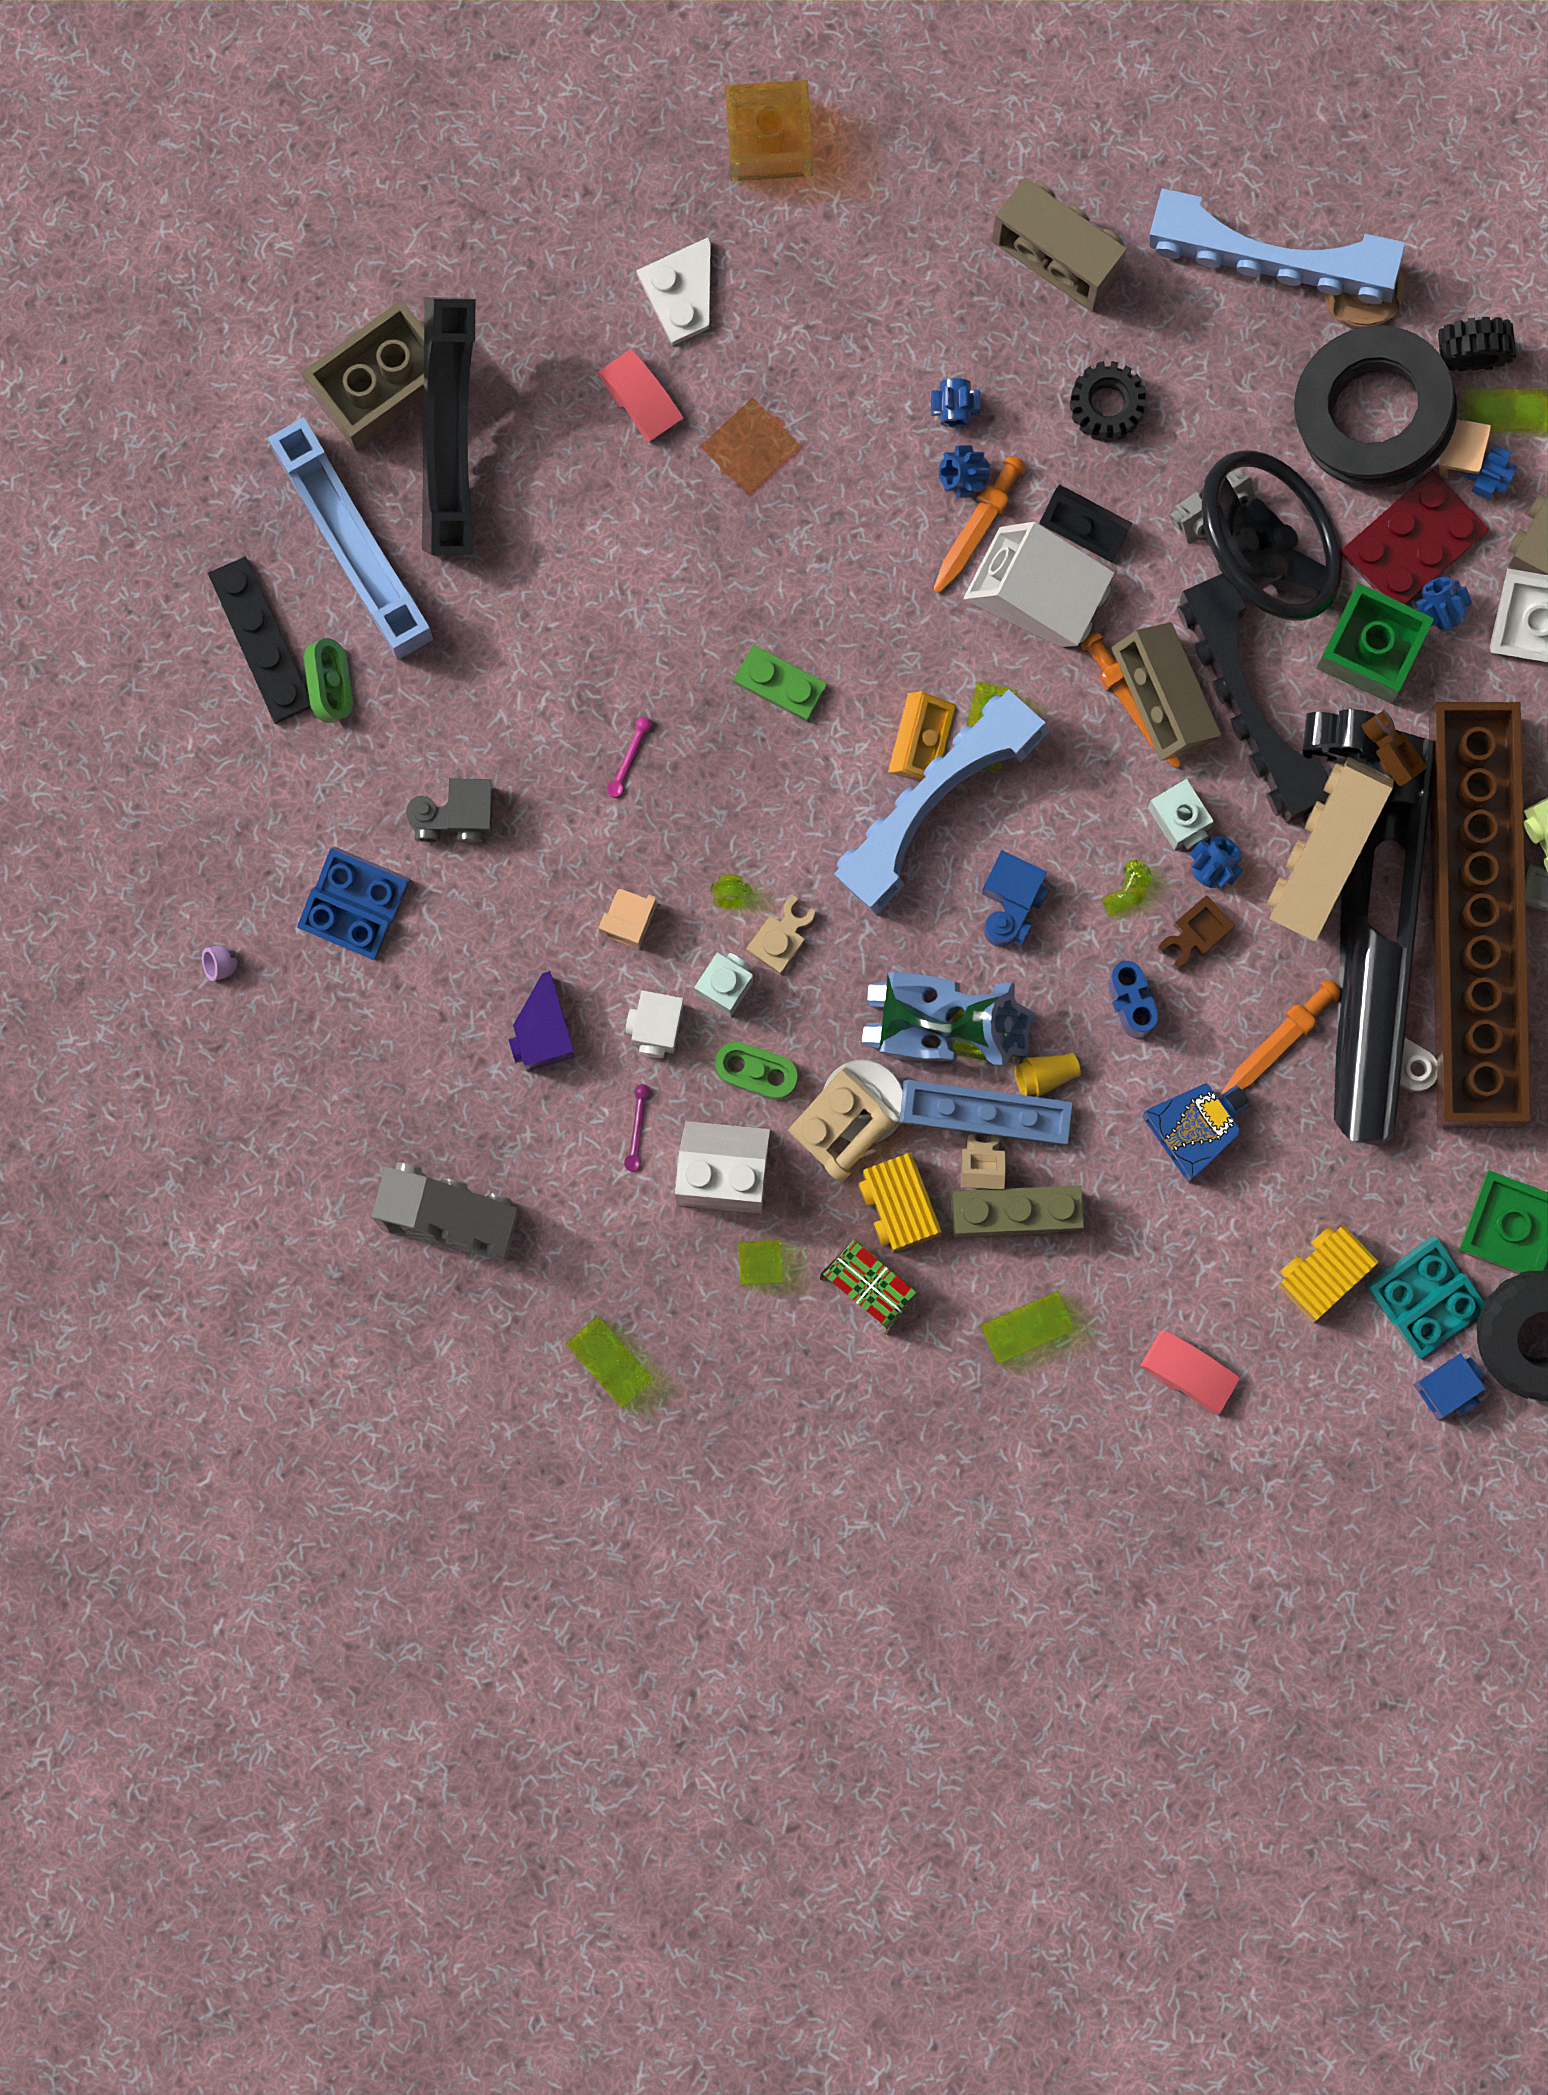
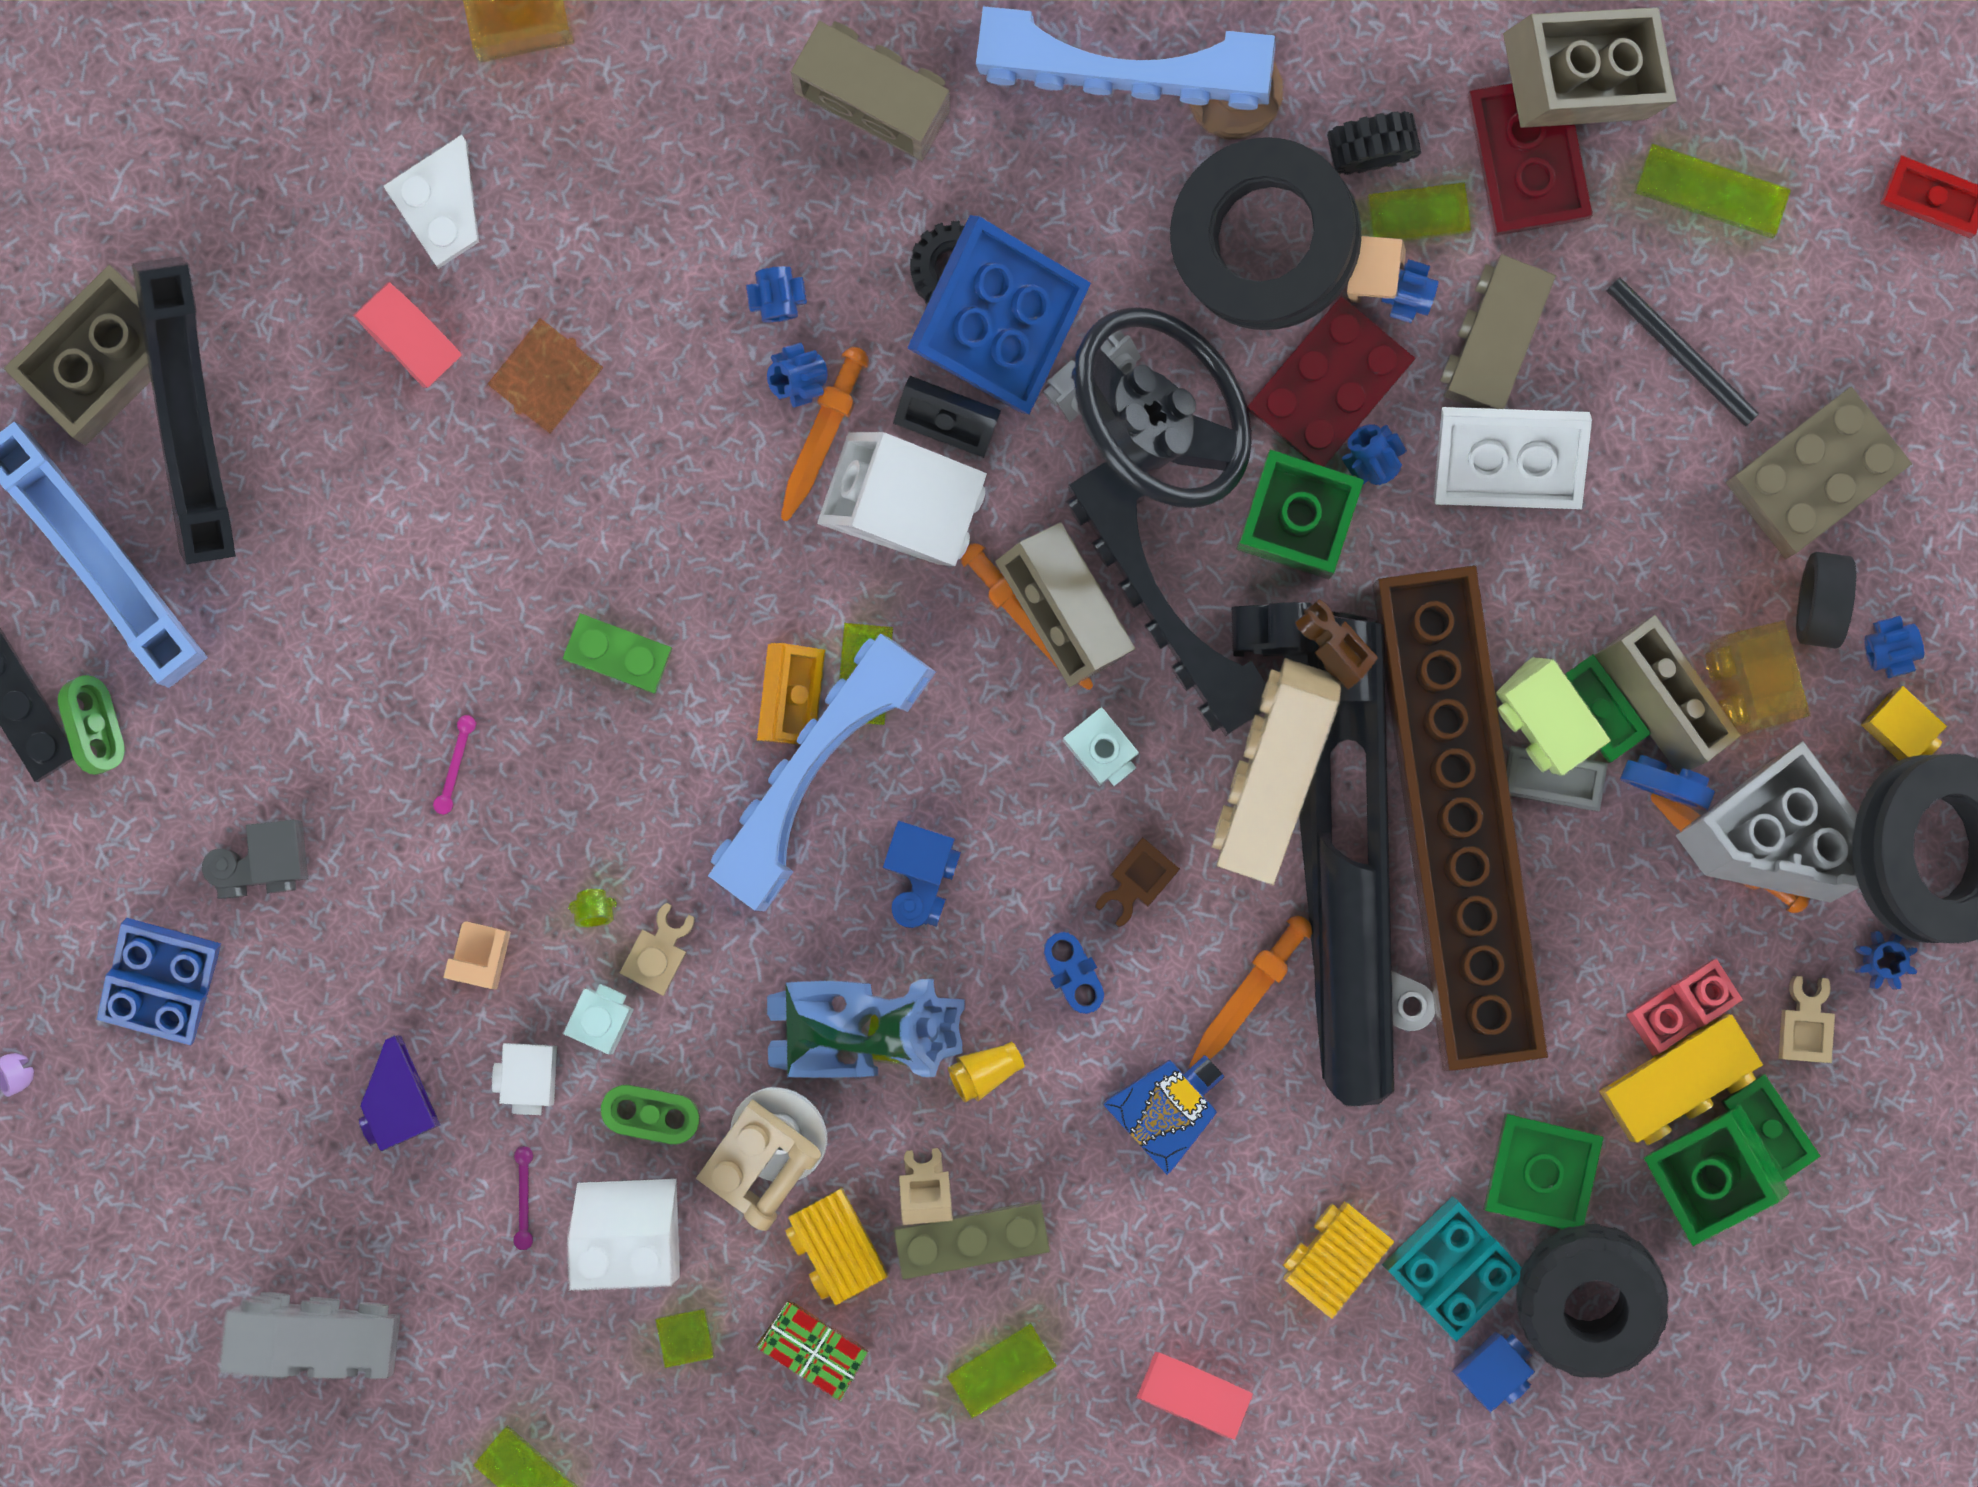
camera: 10 degrees left, 5 degrees up
(985, 1112) = (920, 1129): medium blue plate -> none
(1133, 890) = (1058, 840): clear neon green arm -> none
(1142, 443) = (999, 314): none -> blue plate
(1216, 862) = (1149, 797): blue gear -> none

